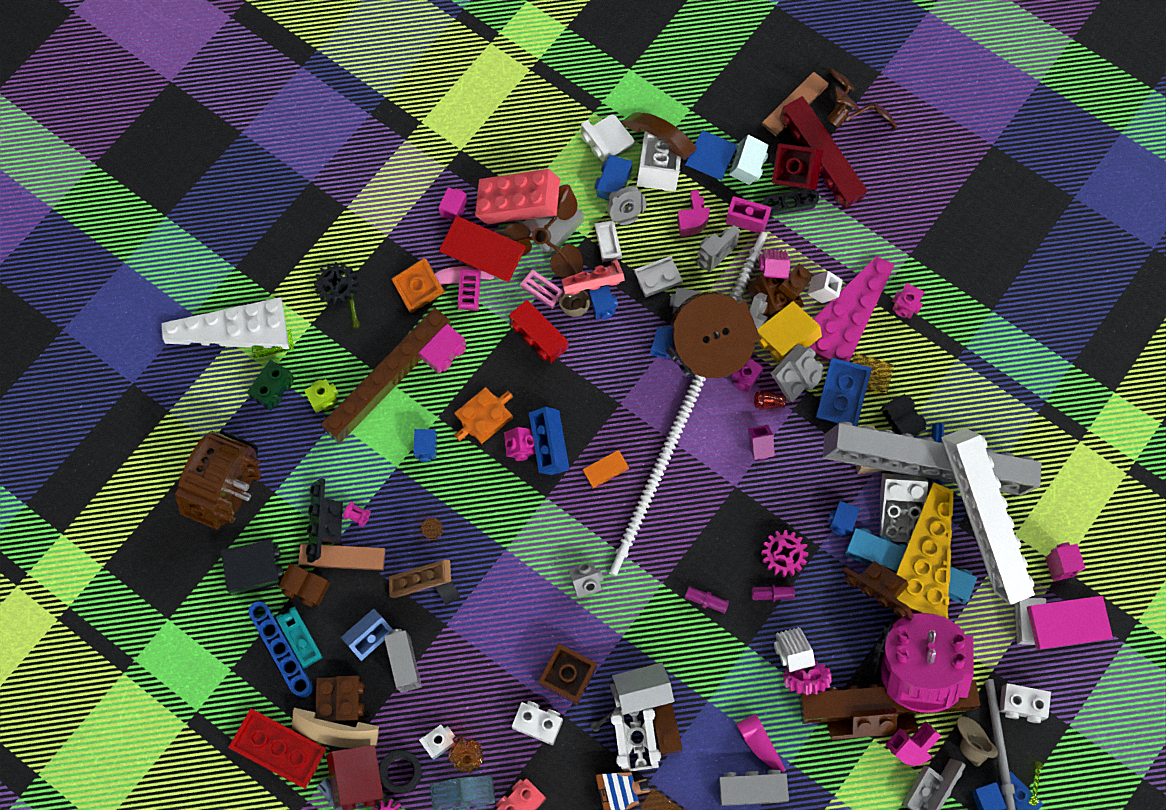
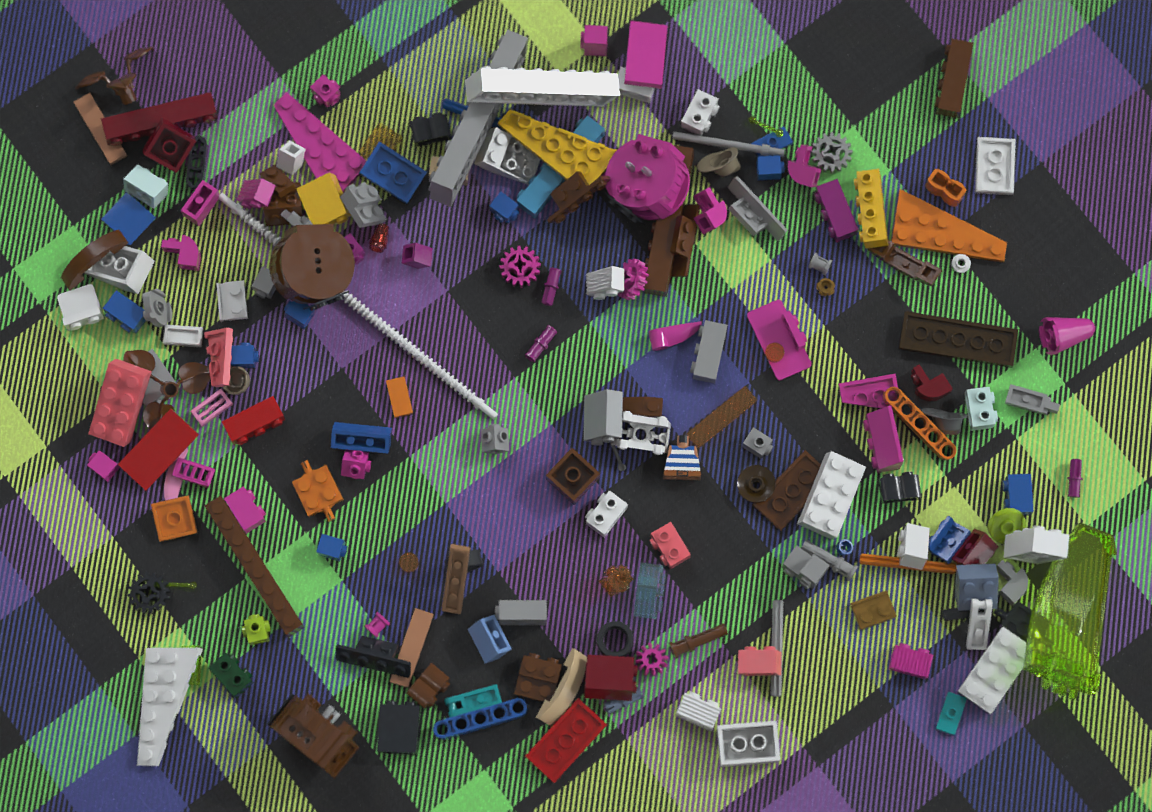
camera: 75 degrees left, 5 degrees up
(437, 749) = (598, 608): white brick -> none
(717, 248) = (225, 243): light grey plate -> none

